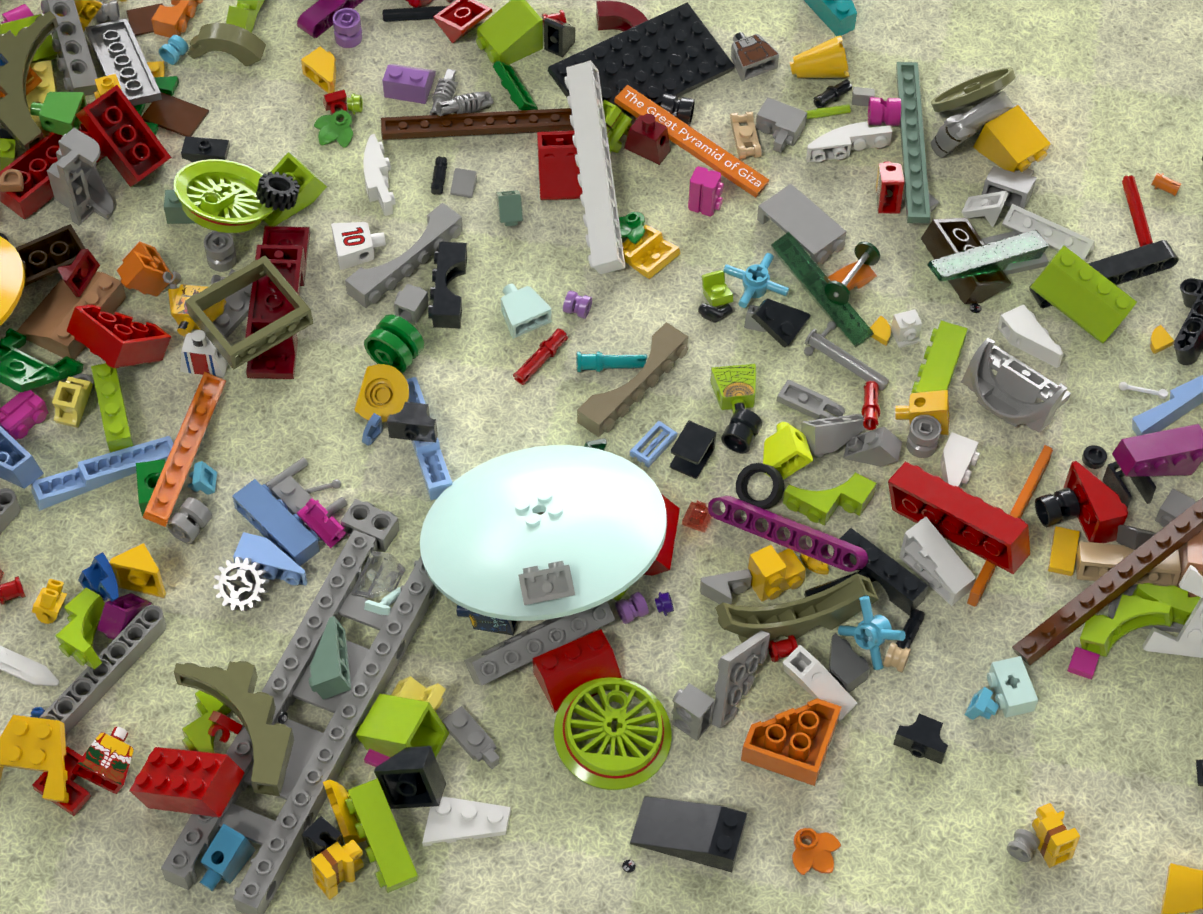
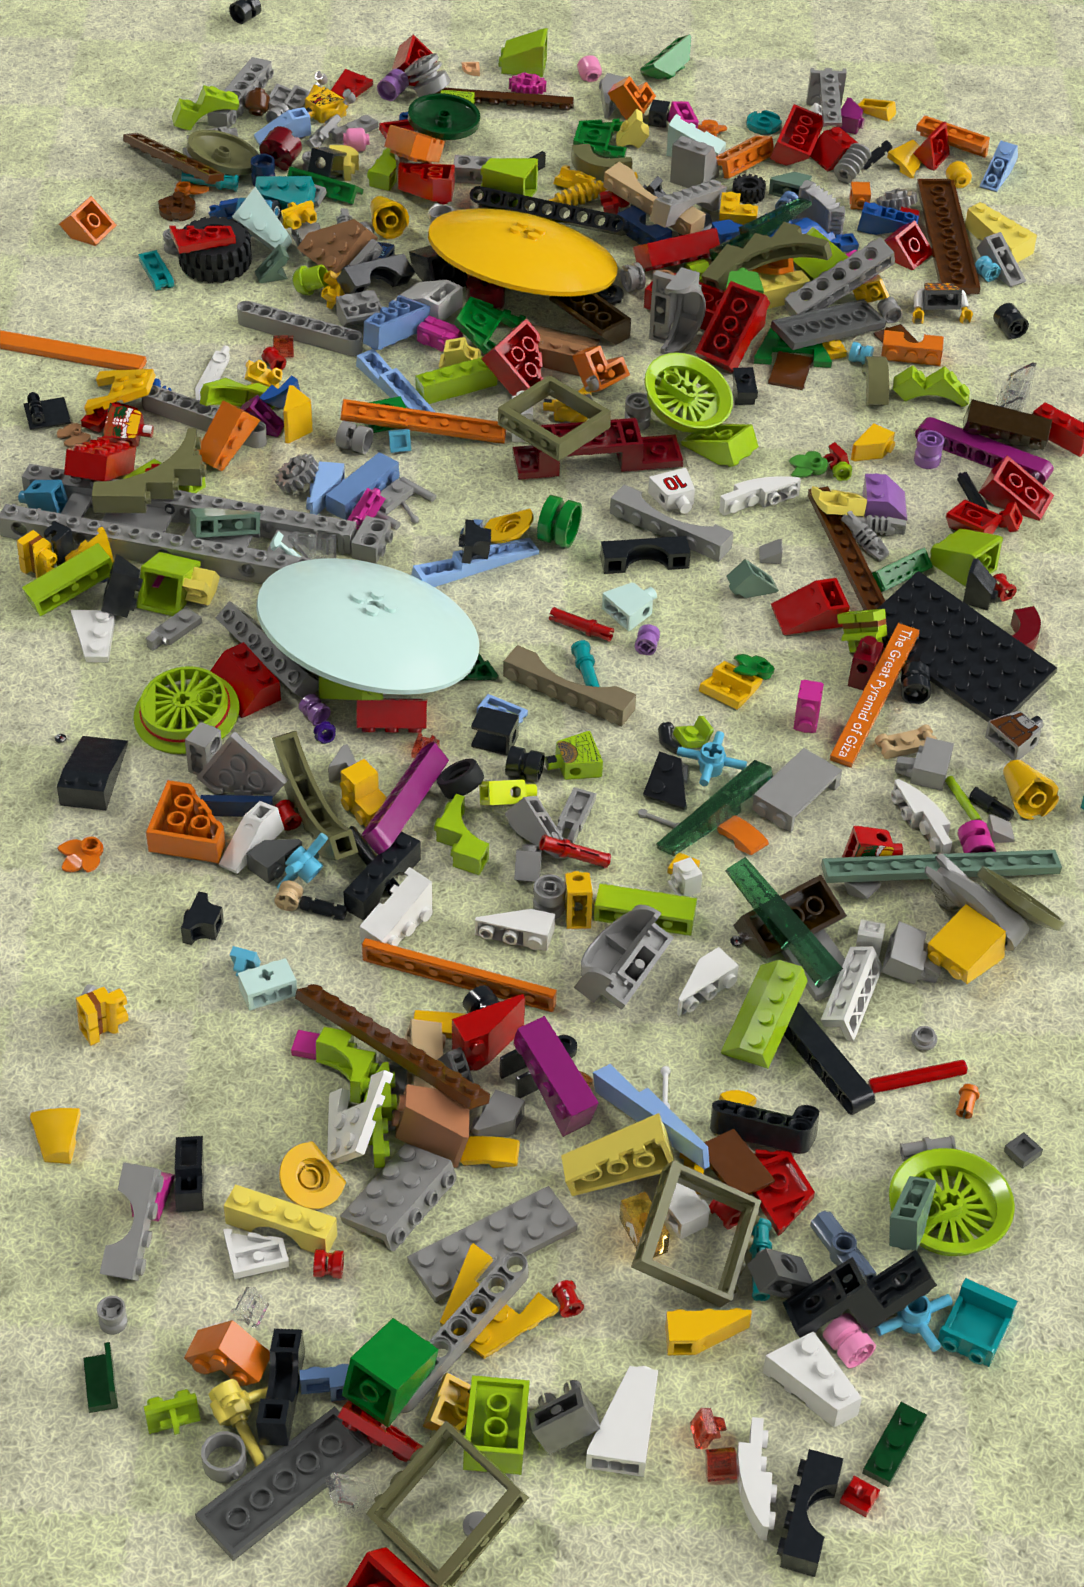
camera: 80 degrees right, 10 degrees down
(36, 855) = (45, 412): none -> black hinge
(79, 272) = (579, 330): dark red slope -> none
(81, 826) = (75, 433): none -> medium nougat piece
(104, 84) = (785, 310): yellow bracket -> none
(165, 639) = (226, 435): none -> orange wedge
(277, 191) = (696, 429): black tyre -> none
(411, 303) = (616, 529): light grey brick -> none
(413, 112) = (839, 502): none -> light yellow slope
(439, 175) = (771, 535): black axle -> none
(547, 583) = (284, 600): light grey bracket -> none
(595, 168) = (801, 615): white brick -> none
(766, 688) = (233, 804): none -> dark blue tile
(837, 291) = (702, 808): dark green axle -> none
(845, 359) = (634, 837): light grey axle -> none
(960, 517) = (440, 914): red brick -> none
(1097, 198) = (924, 1038): none -> light grey plate

